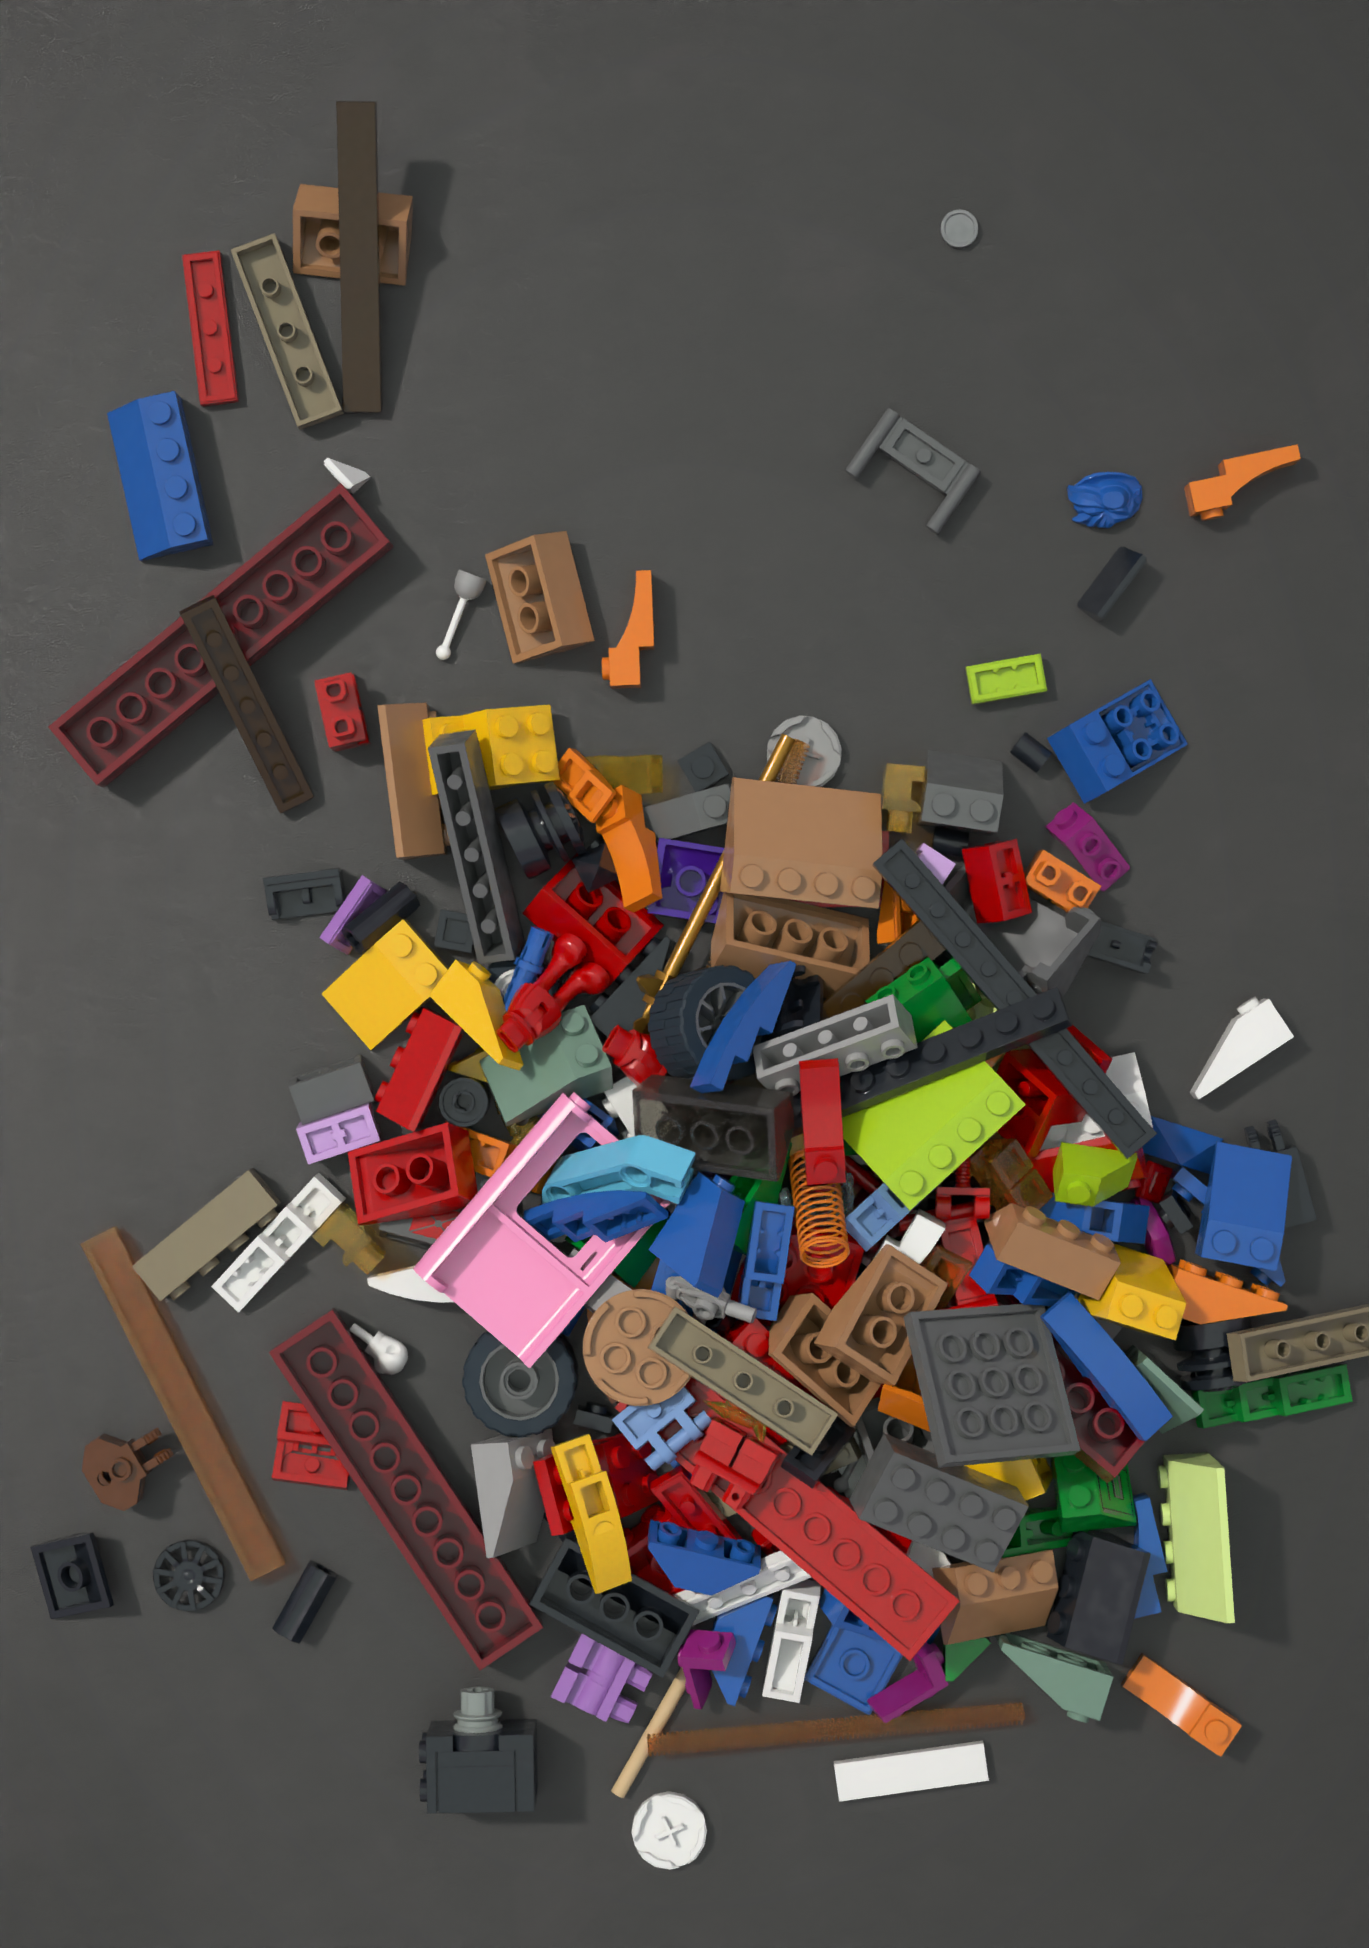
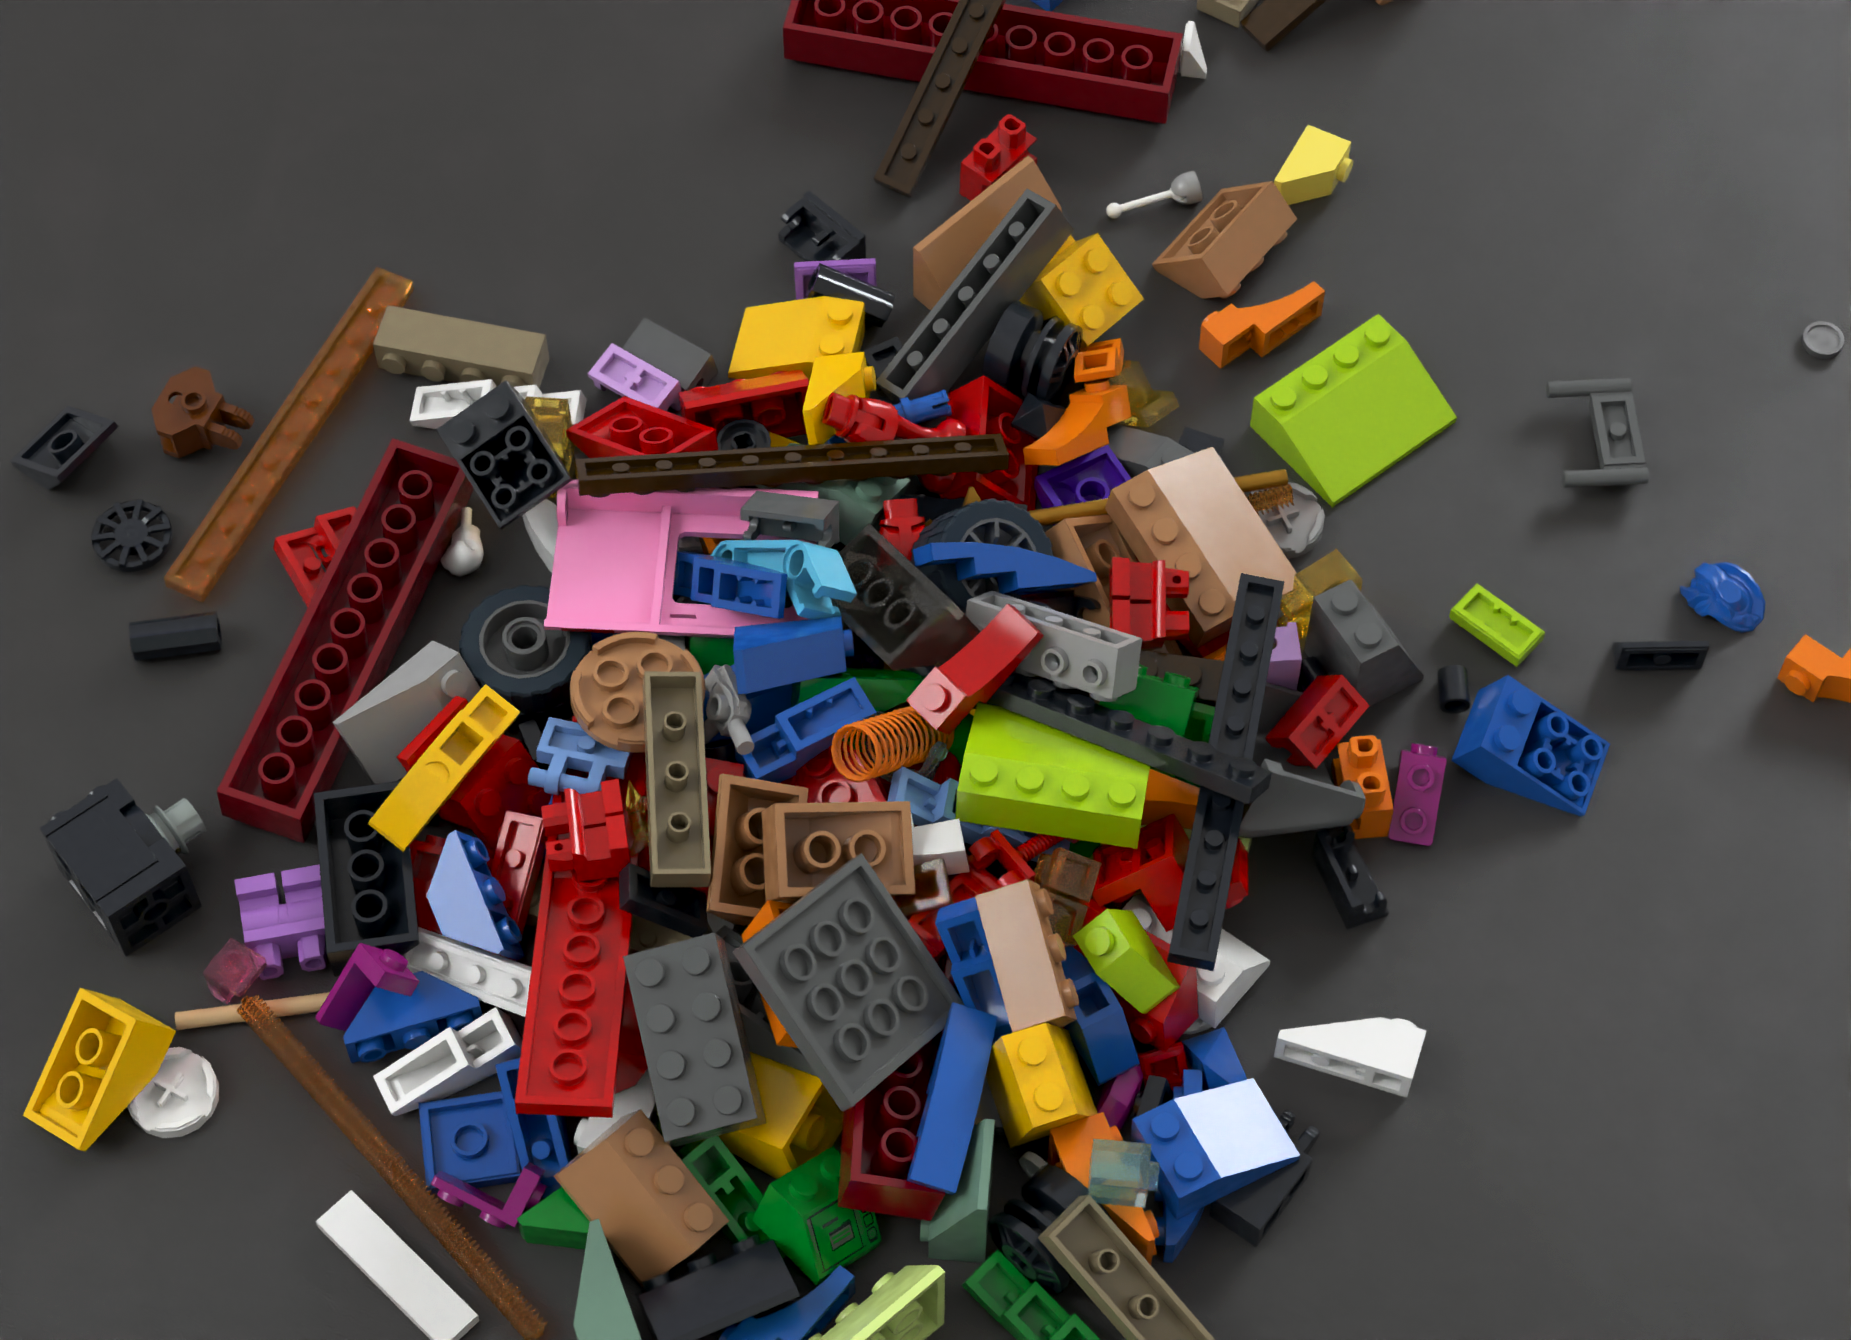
camera: 55 degrees right, 30 degrees down
(366, 1294) = (505, 453): none -> black slope
(525, 474) = (1314, 166): none -> light yellow slope
(531, 1100) = (790, 464): none -> dark brown plate
(581, 1137) = (792, 517): none -> dark grey hinge
(619, 1740) = (233, 970): none -> clear pink bracket
(623, 1873) = (96, 1067): none -> yellow slope
(761, 630) = (1352, 411): none -> lime slope
(833, 946) = (1139, 601): none -> red hips
(1237, 1298) = (1121, 1172): none -> clear light blue brick

